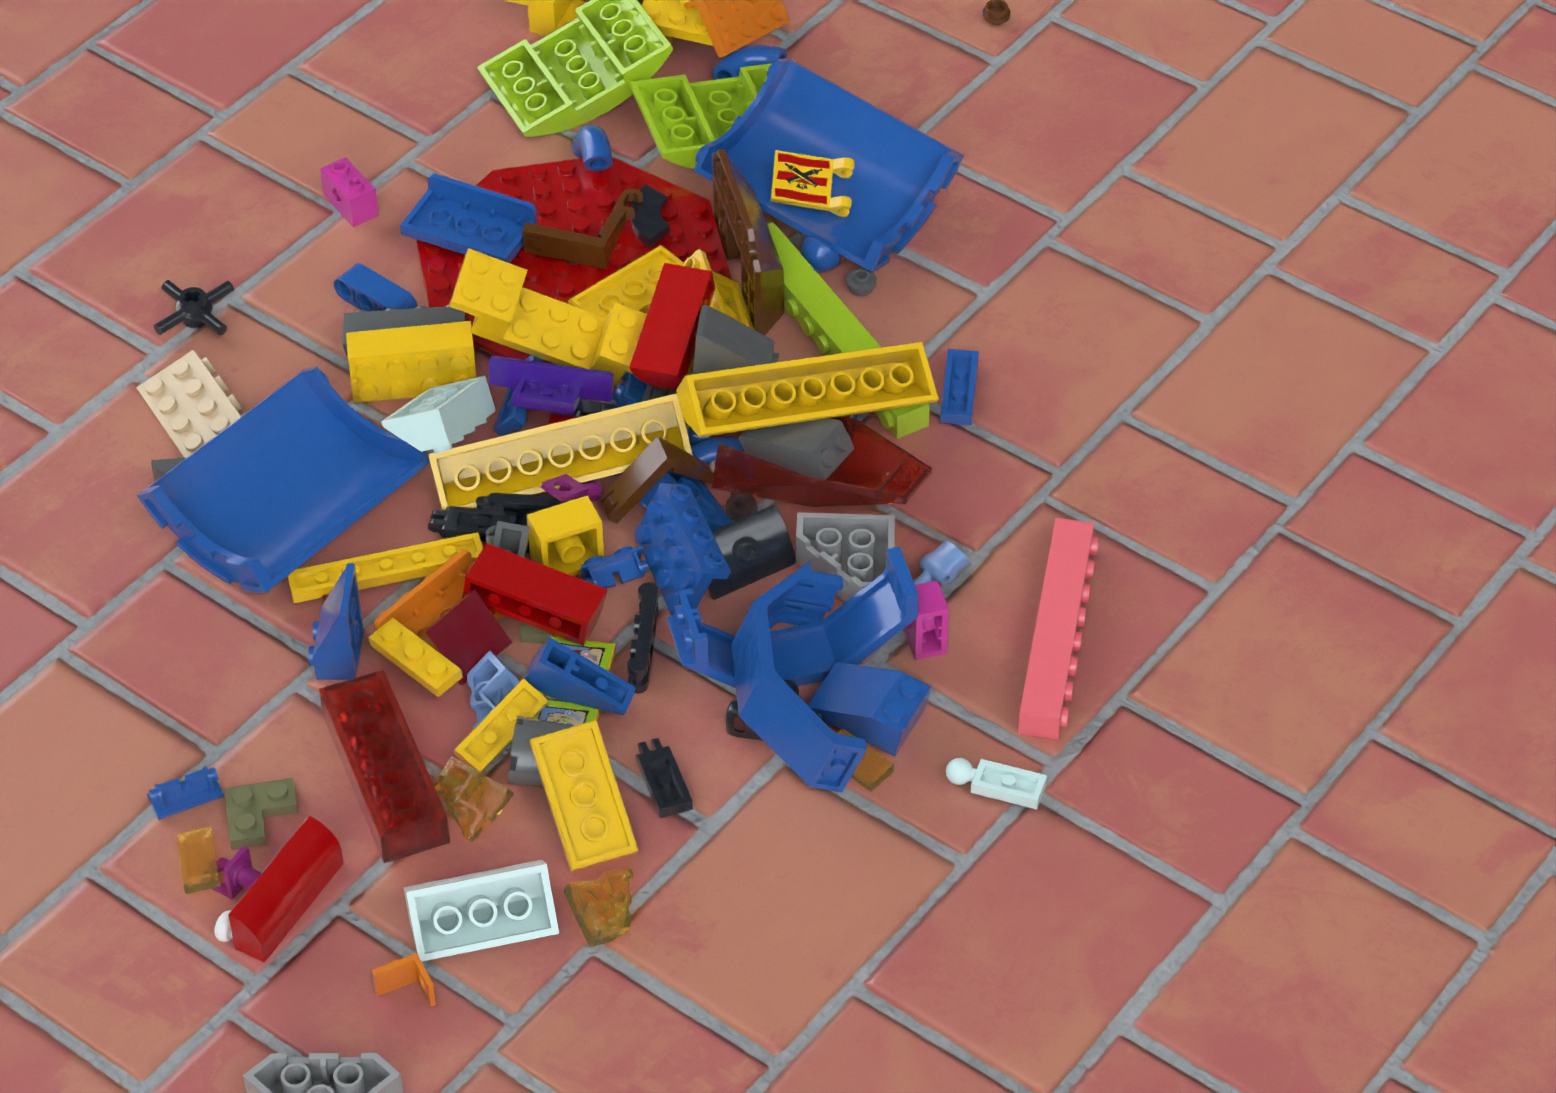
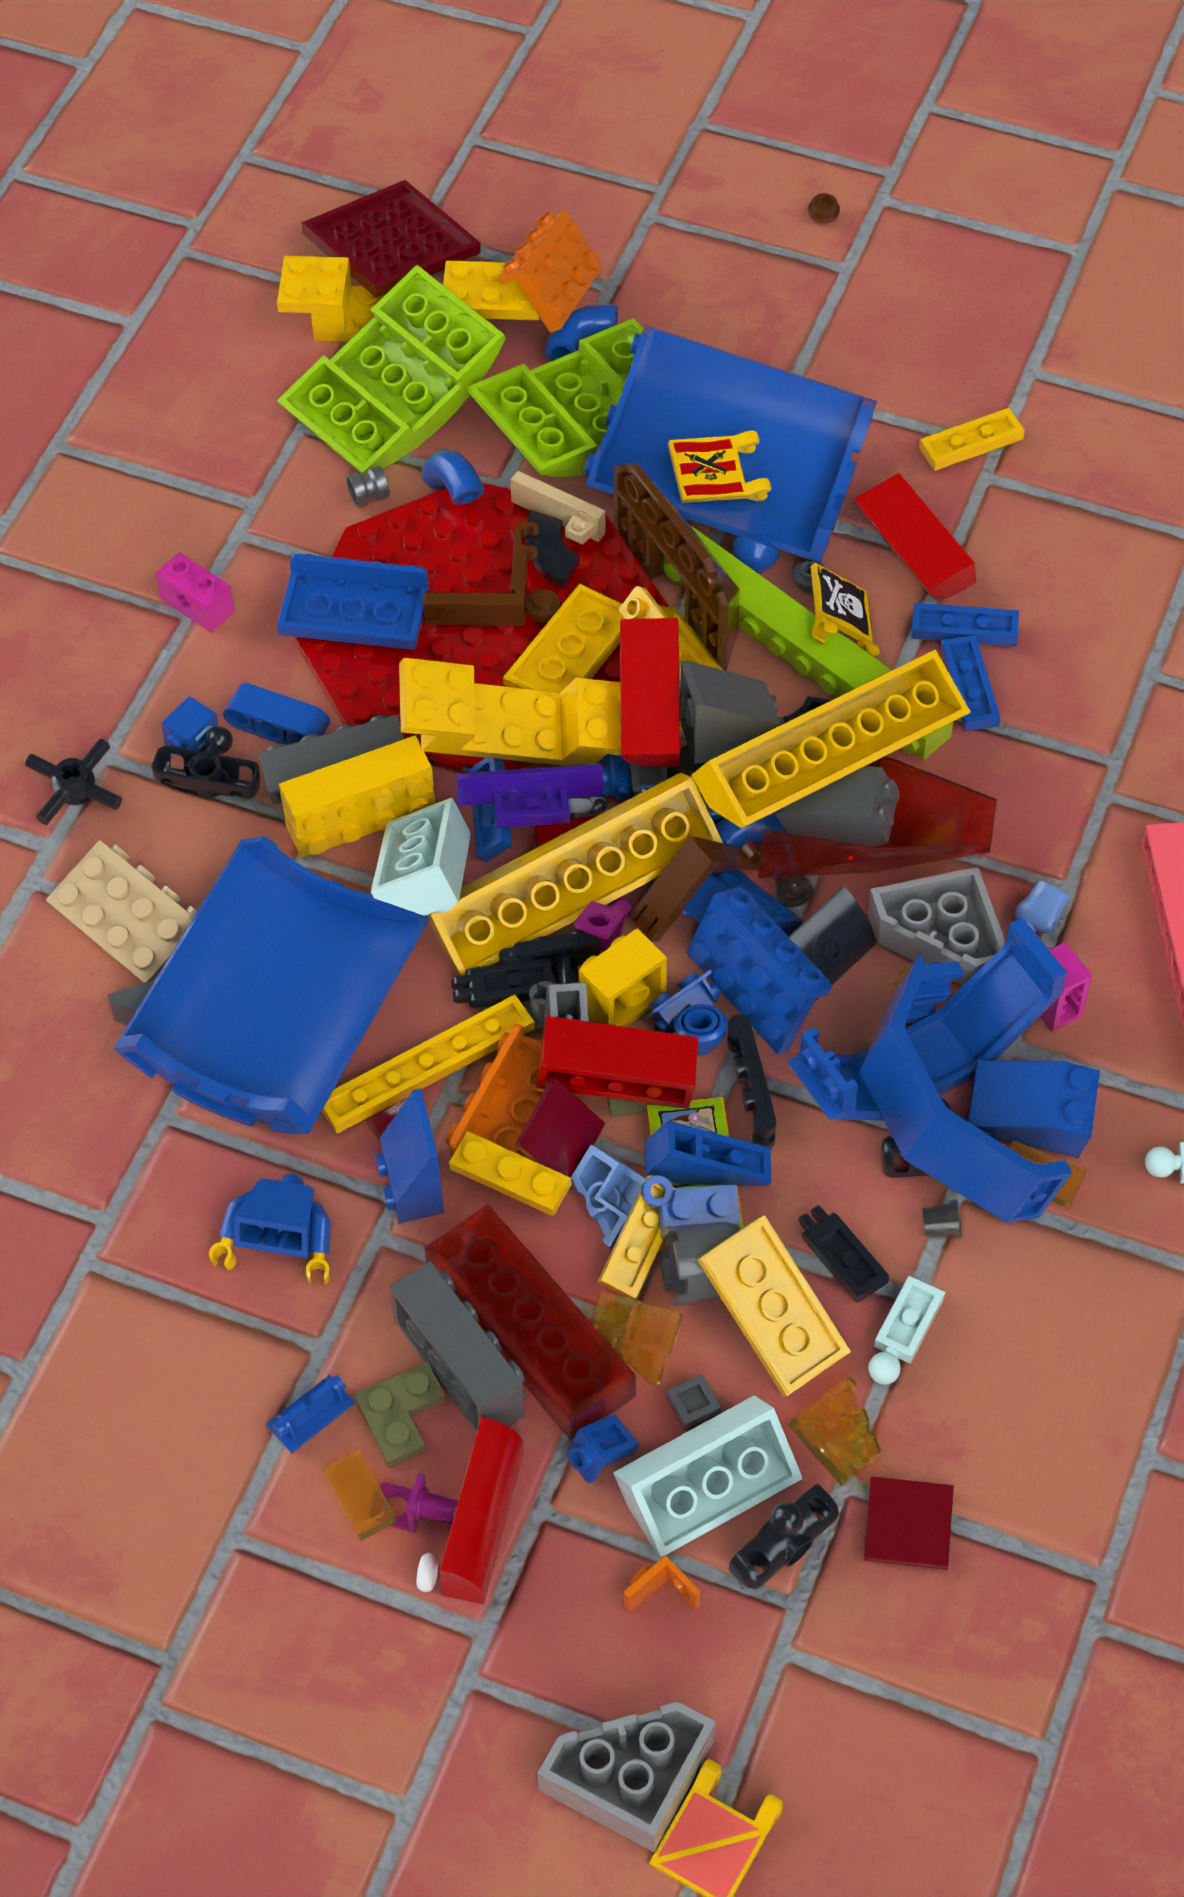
camera: 15 degrees left, 10 degrees up
(214, 648) = (277, 1220): none -> blue torso
(302, 289) = (188, 725): none -> blue brick
(304, 322) = (207, 771): none -> black piece
(316, 767) = (457, 1348): none -> dark grey brick
(403, 867) = (599, 1446): none -> blue bracket
(492, 853) = (693, 1402): none -> dark grey plate
(522, 966) = (784, 1537): none -> black piece
(523, 143) = (367, 486): none -> flat silver wheel
(550, 706) = (692, 1204): none -> hinge
(621, 587) = (703, 1022): none -> blue brick
(623, 254) = (542, 604): none -> reddish brown plate
(630, 983) = (909, 1523): none -> dark red piece
(681, 195) = (578, 516): none -> tan hinge
(689, 843) = (904, 1329): none -> light aqua plate
(757, 772) = (943, 1220): none -> clear smoke piece
(872, 305) = (841, 607): none -> flag
(961, 270) = (917, 537): none -> red brick
(991, 346) = (950, 621): none -> blue plate
(1043, 207) = (971, 439): none -> yellow plate

